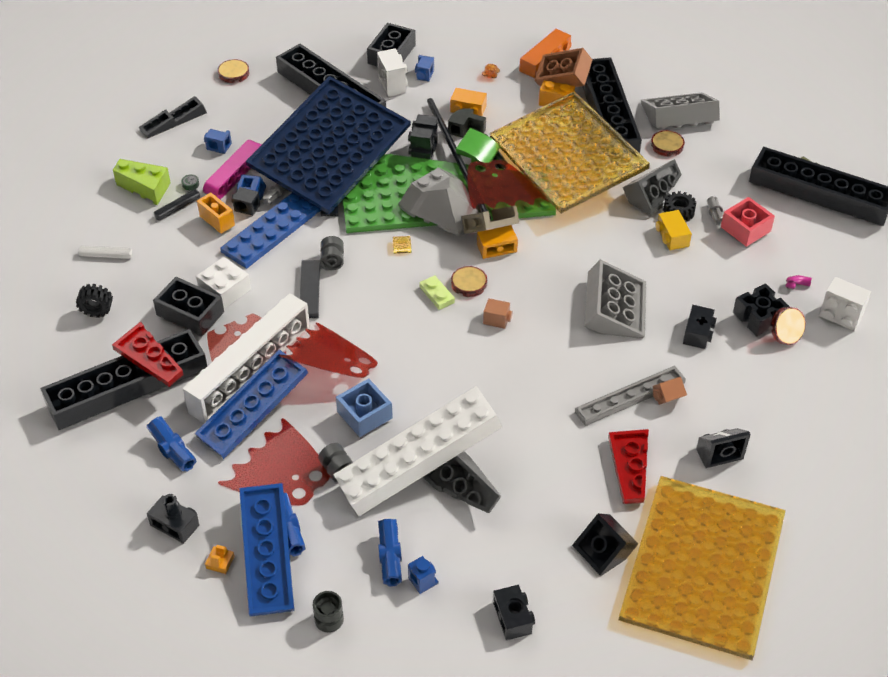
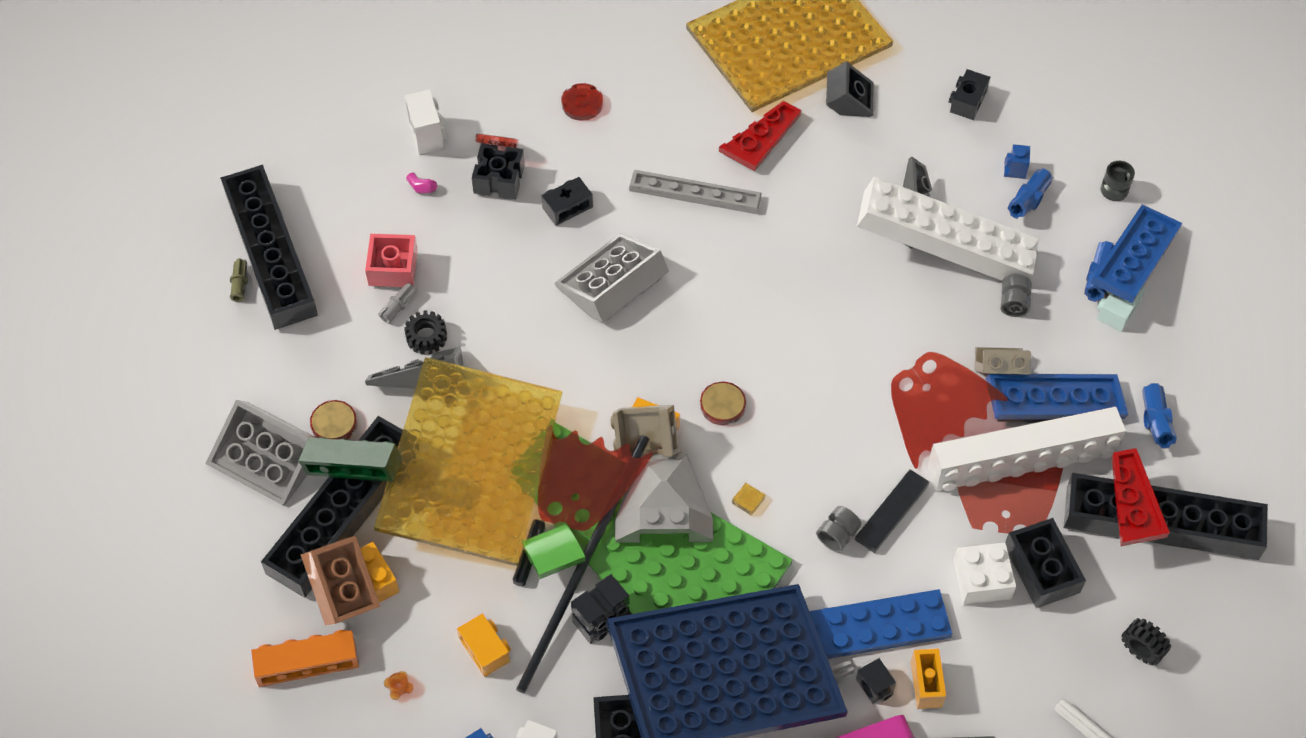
camera: 140 degrees left, 10 degrees up
(173, 518) = (1198, 343): black brick -> none
(219, 559) = (1176, 288): light orange tile -> none
(253, 183) = (857, 698): blue brick -> none
(278, 461) = (1073, 343): clear red piece -> none
(305, 397) = (1002, 360): none -> dark tan panel
(364, 407) = (951, 326): medium blue brick -> none
(437, 292) = (766, 414): yellowish green plate -> none
(463, 120) = (519, 619): pearl dark grey brick -> none
(497, 313) = (735, 342): nougat brick -> none
(622, 103) = (351, 459): none -> brick
(669, 390) = (665, 162): nougat brick -> none
(673, 230) = (466, 309): yellow brick -> none
(723, 447) = (677, 89): black slope -> none
(779, 404) = (582, 101): none -> clear red tile

